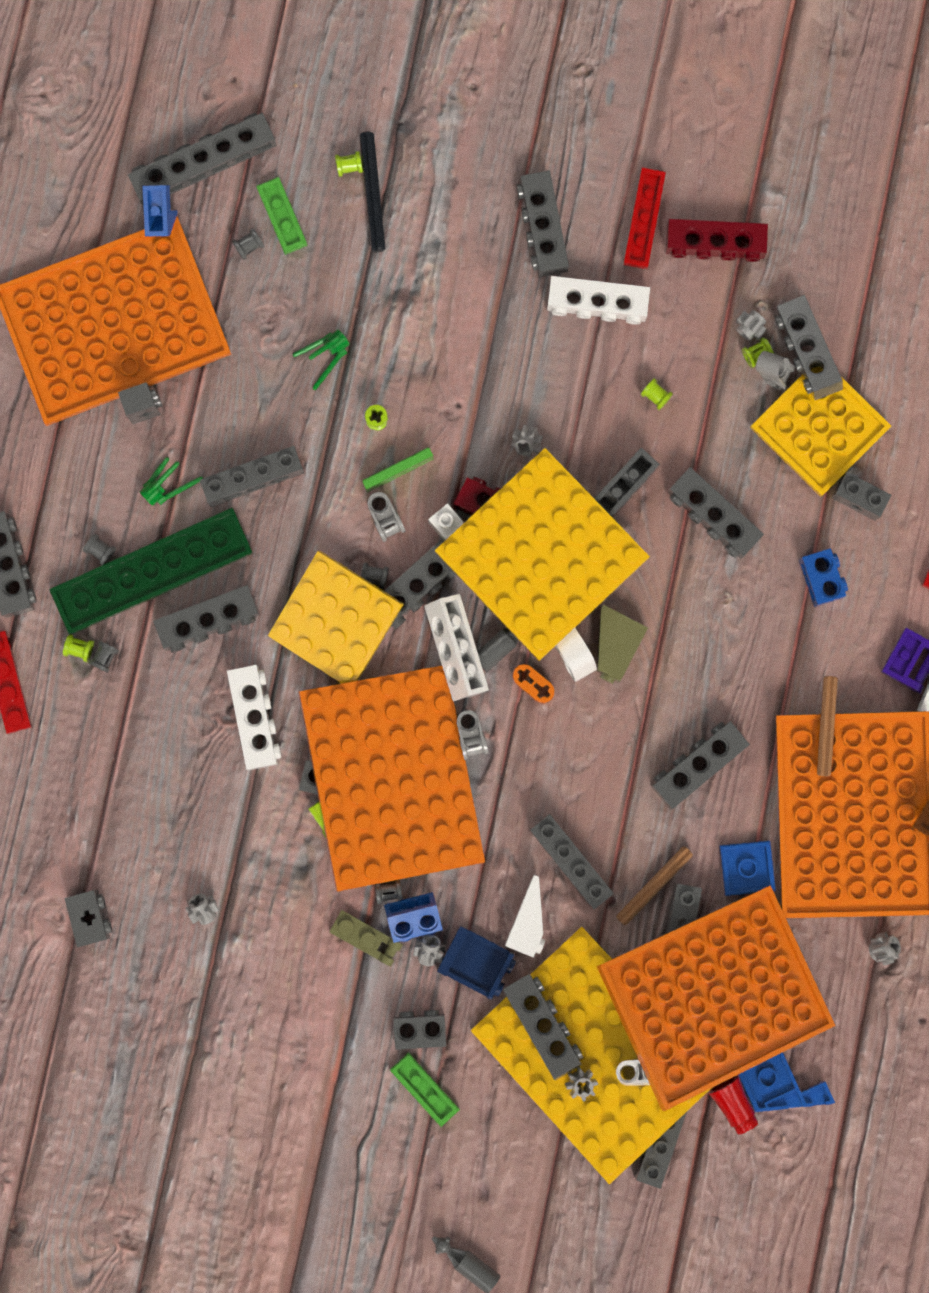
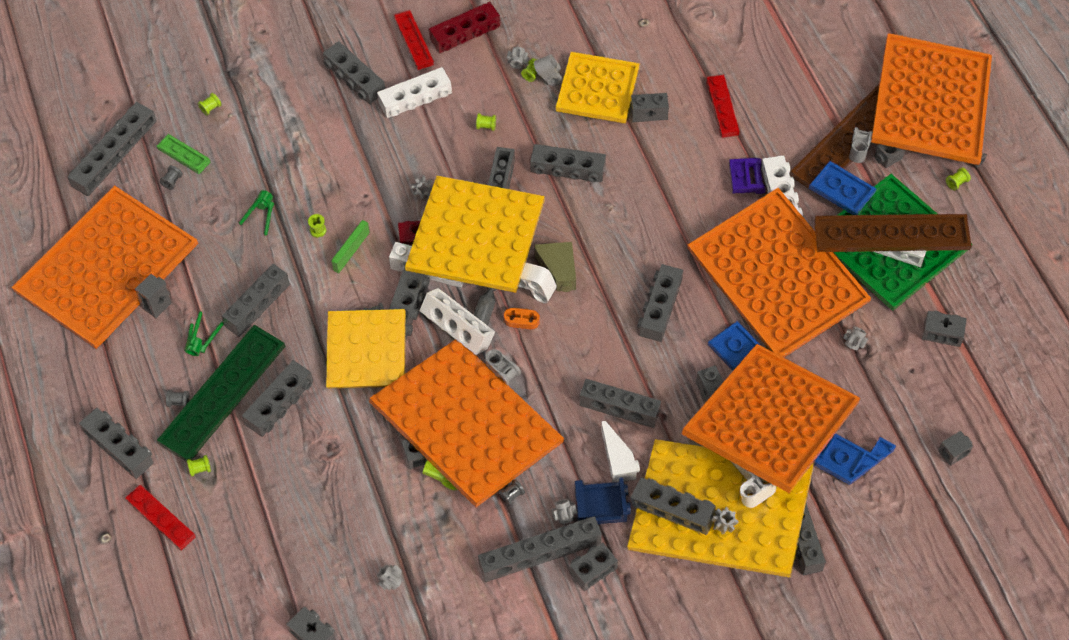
camera: 30 degrees left, 25 degrees down
(103, 656) = (220, 461): dark grey bush -> none
(157, 211) = (99, 183): blue slope -> none
(238, 681) = (364, 462): white brick -> none
(365, 937) = (513, 532): olive plate -> none
(372, 192) = (235, 113): black axle -> none
(376, 977) = (539, 549): none -> dark grey brick
(385, 517) = (361, 278): light grey piece -> none
(412, 912) = (537, 492): blue brick -> none
(424, 1089) = (622, 604): bright green tile -> none
(654, 885) = (683, 391): medium nougat axle -> none
(734, 1104) = (834, 485): red plant -> none
(799, 312) = (562, 47): dark grey brick -> none
(816, 579) = (655, 158): blue brick -> none
(827, 726) = (723, 229): medium nougat axle -> none
(898, 1146) = (955, 448): none -> dark grey brick

